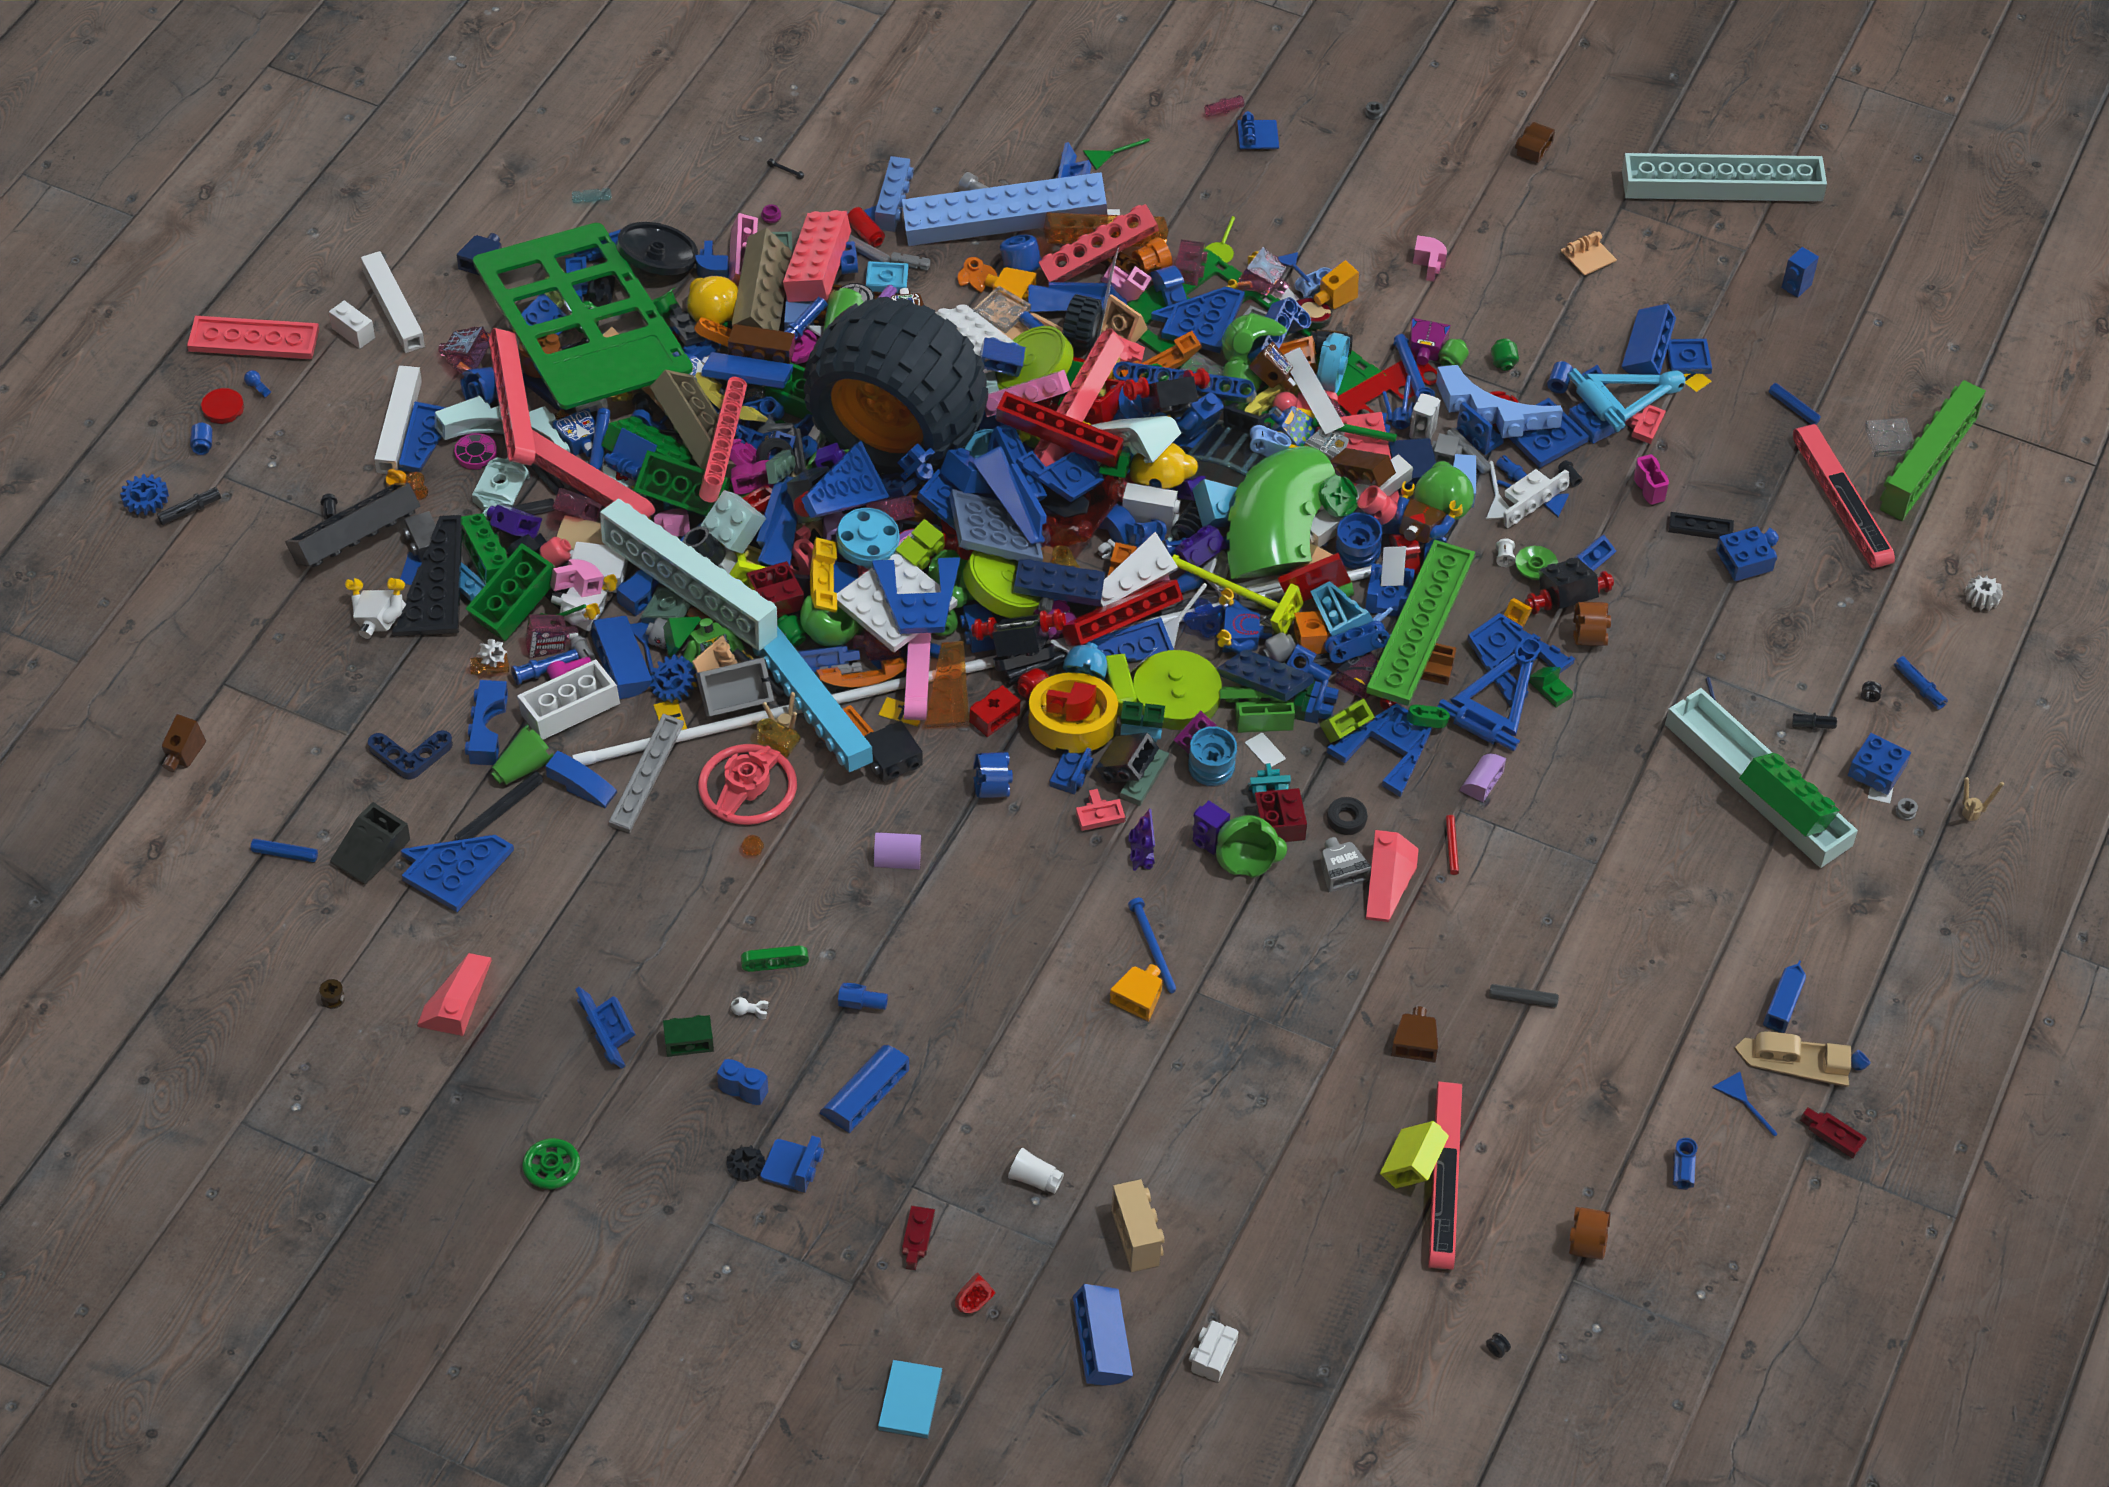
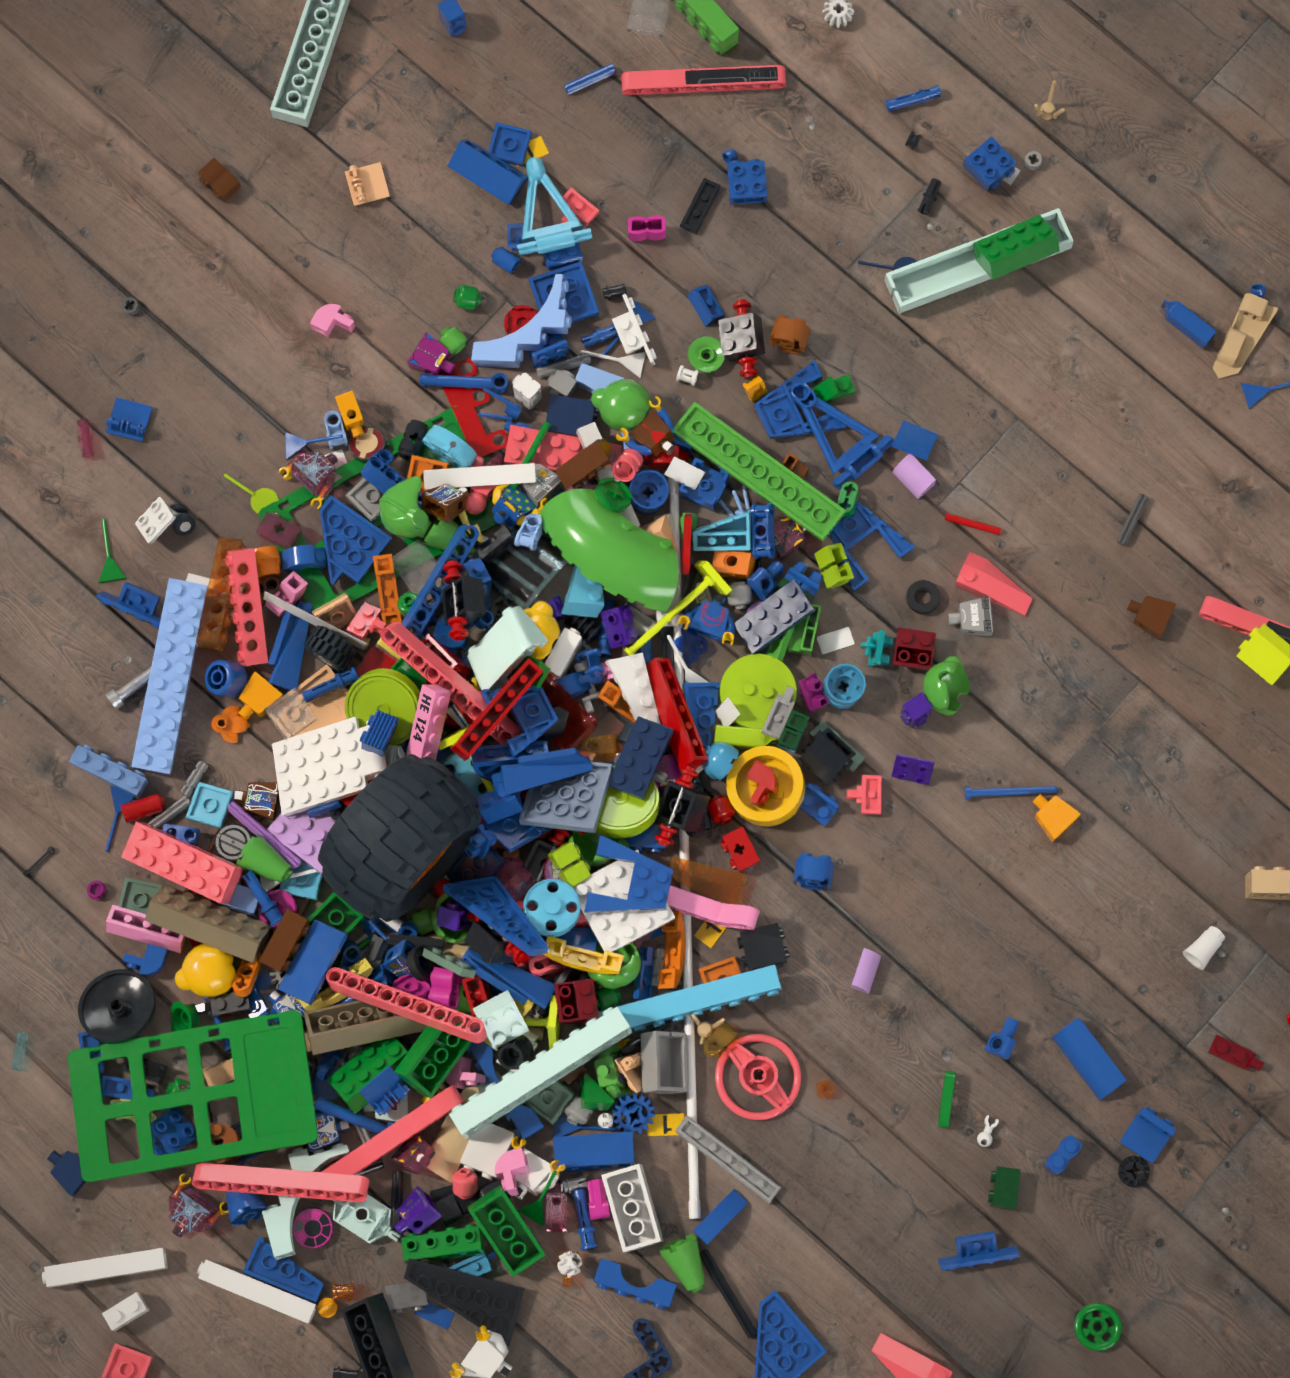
camera: 70 degrees left, 25 degrees up
(656, 651) = (605, 1120): none -> white arm
(1171, 190) = (160, 516): none -> white plate
(1173, 704) = (779, 714): none -> light grey hinge
(1523, 763) = (914, 440): none -> blue tile

